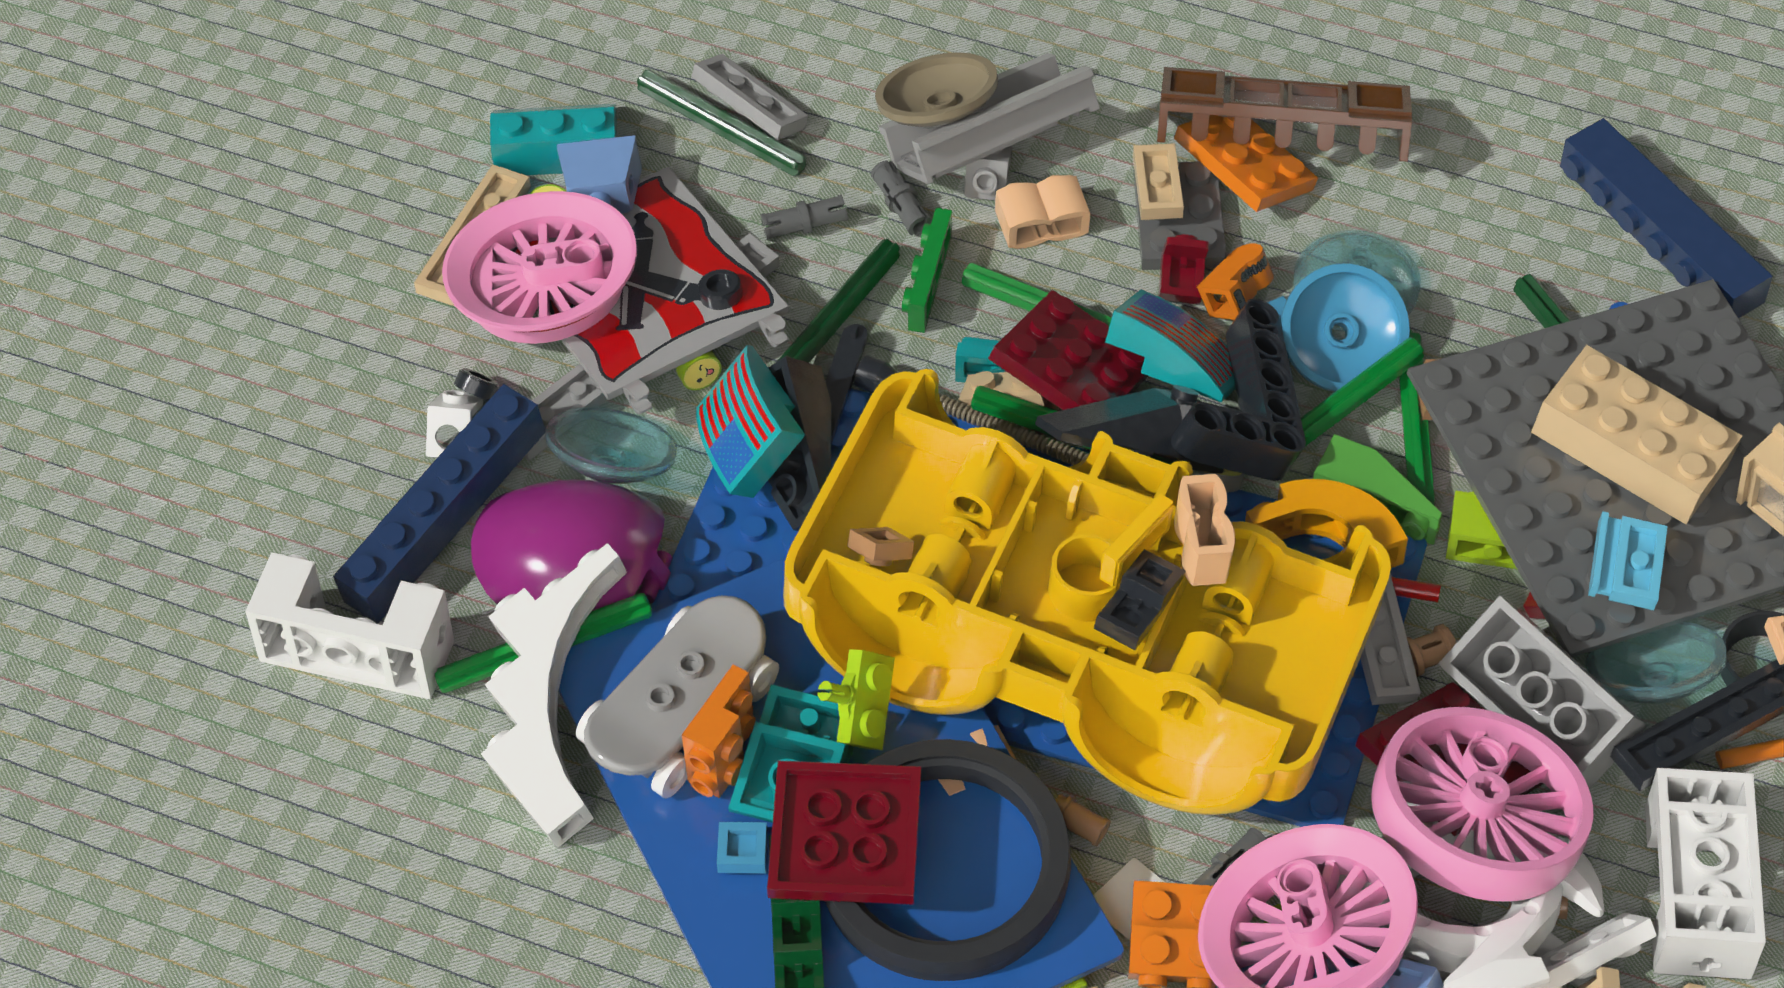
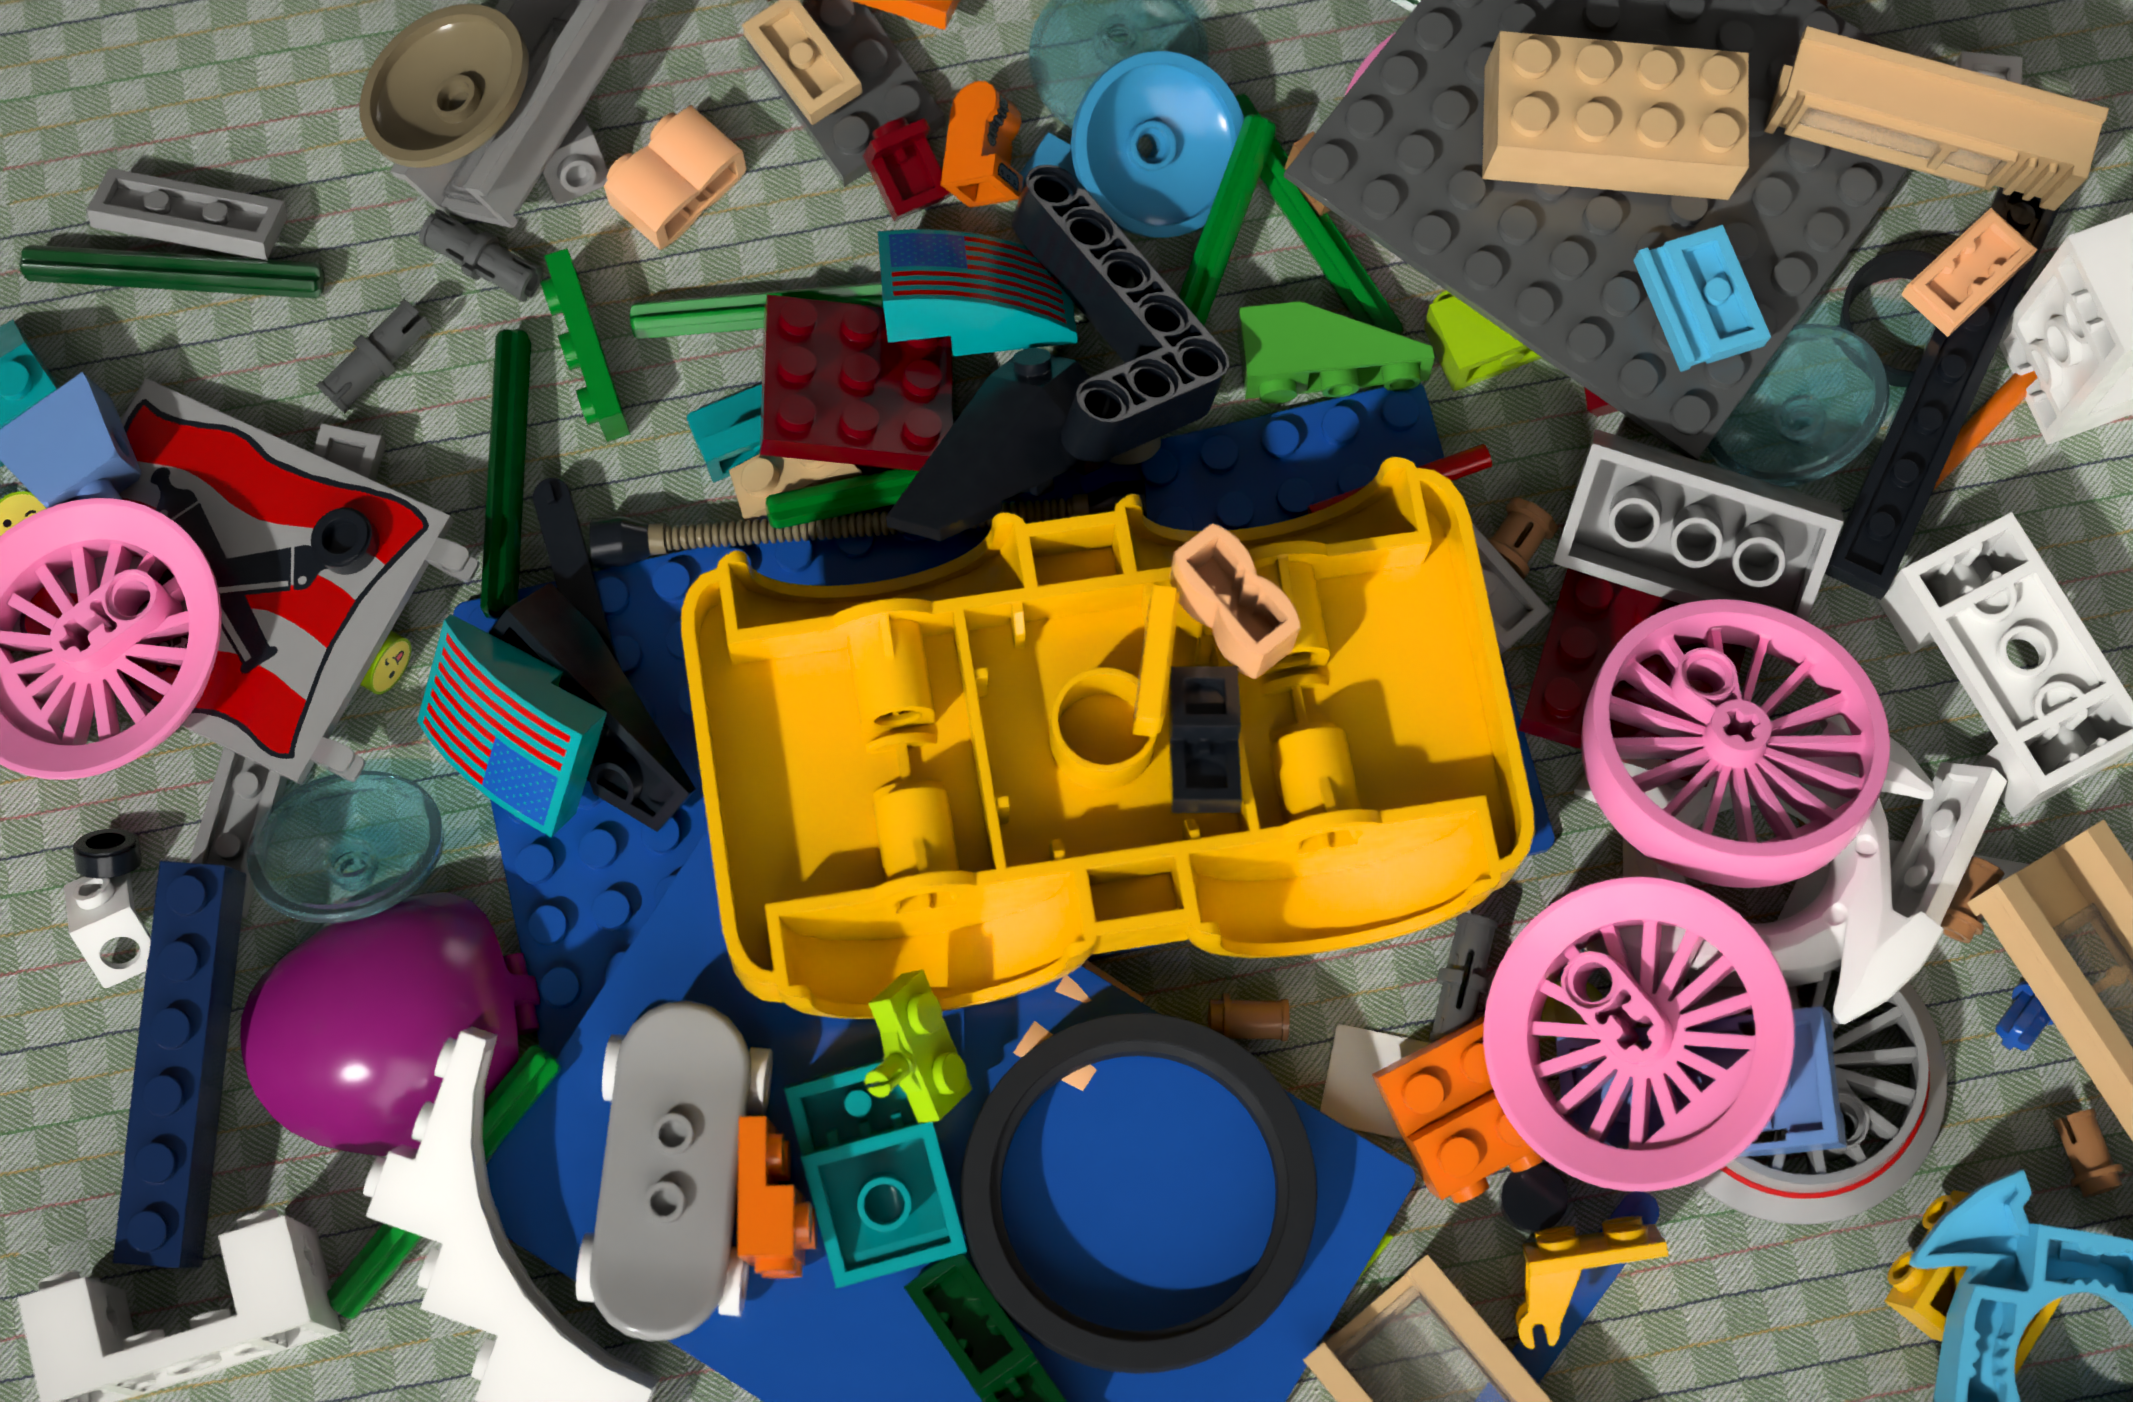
camera: 30 degrees left, 20 degrees up
(742, 847) = (883, 1326): dark azure plate -> none
(844, 832) = (1013, 1250): dark red plate -> none
(880, 545) = (829, 847): medium nougat plate -> none
(1332, 512) = (1307, 415): light orange arch -> none

